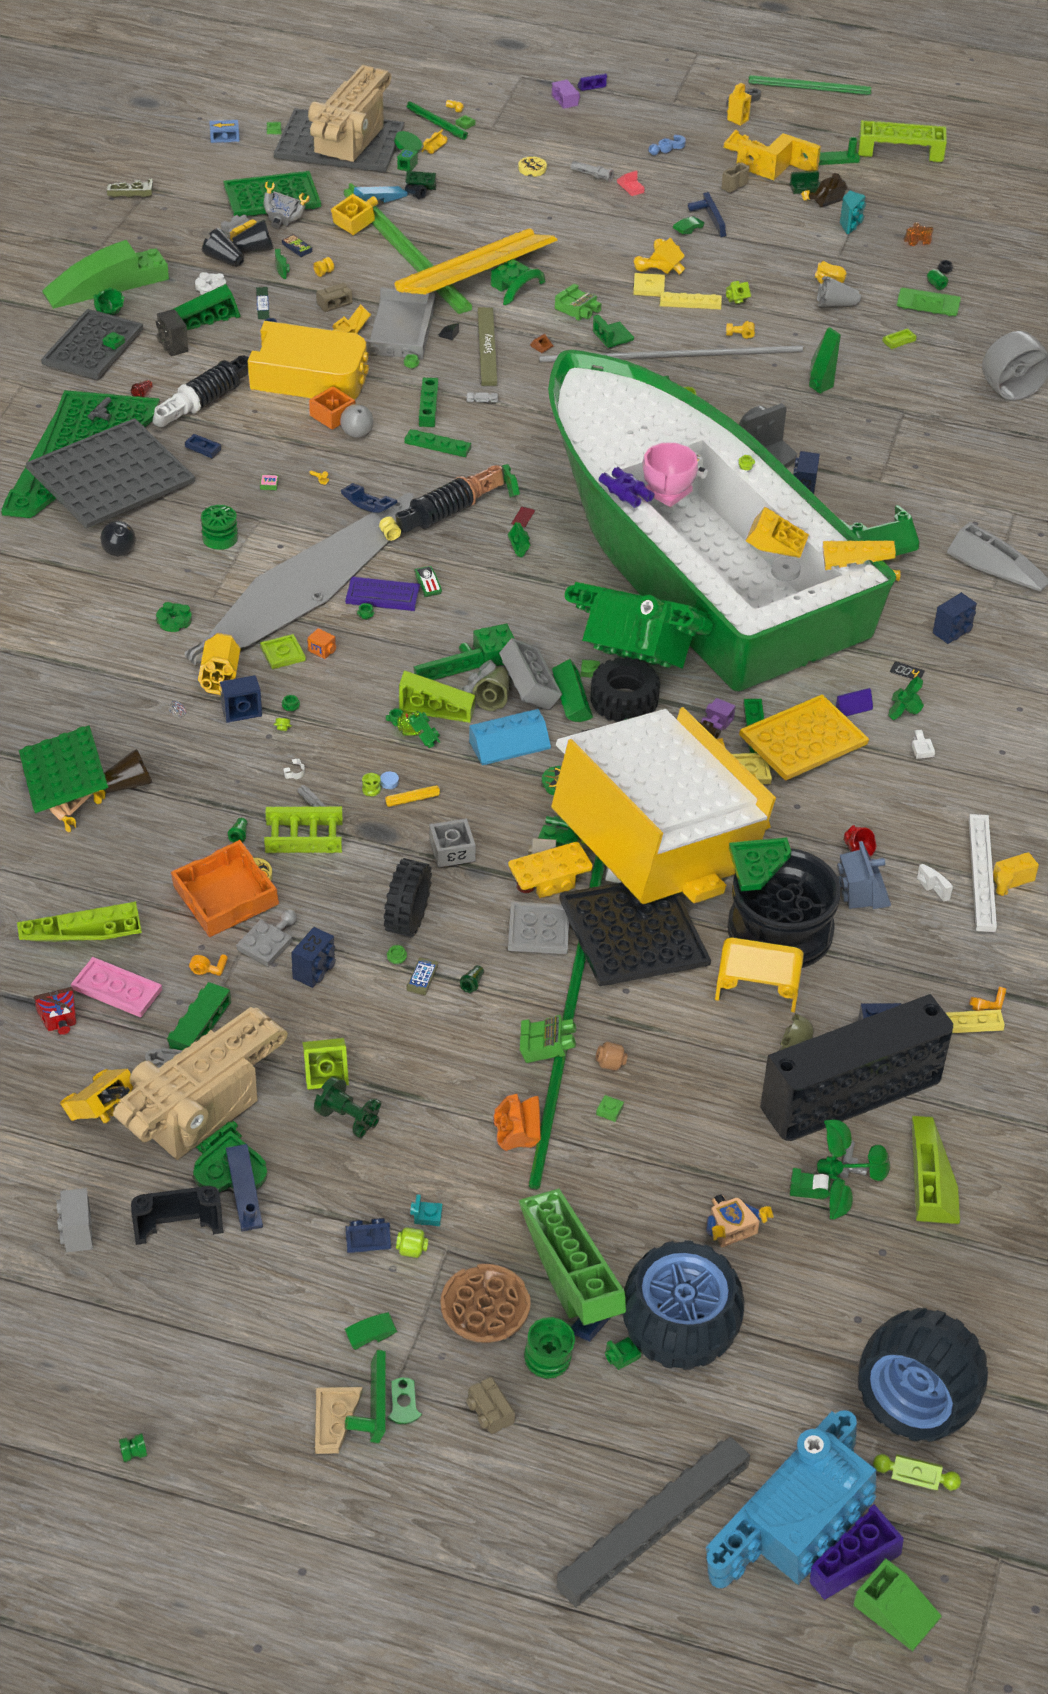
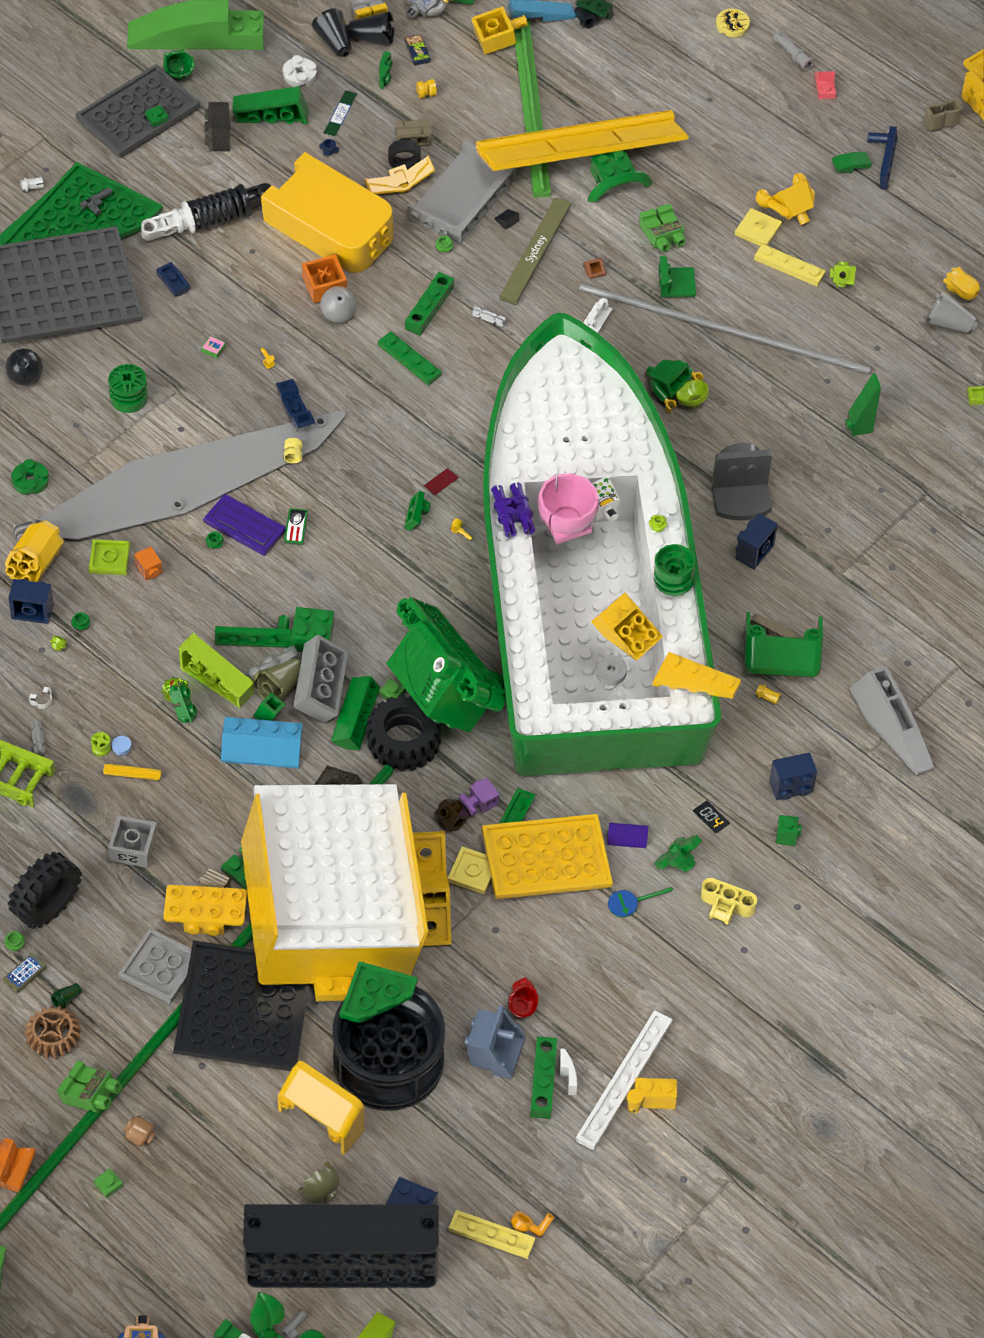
camera: 25 degrees right, 10 degrees up
(32, 417) = (34, 183): none -> white pin
(140, 389) = (153, 185): clear red cone -> none
(333, 303) = (400, 146): none -> black tyre
(393, 716) = (169, 671): green plate -> none
(448, 499) = (364, 437): black piece -> none
(481, 1009) = (49, 1041): none -> medium nougat gear
(501, 708) = (269, 708): none -> green brick
(511, 481) = (448, 429): green tile -> none
(559, 542) = (456, 527): none -> yellow hand
(666, 145) = (898, 42): medium blue piece -> none
(746, 330) = (822, 327): yellow leg -> none
(788, 483) = (674, 569): none -> green wheel
(886, 752) = (624, 903): none -> blue piece
(917, 893) = (543, 1077): none -> green piece
(922, 747) = (662, 913): white plate -> none
(966, 719) = (723, 907): none -> light yellow piece
(976, 657) = (788, 830): none -> green brick

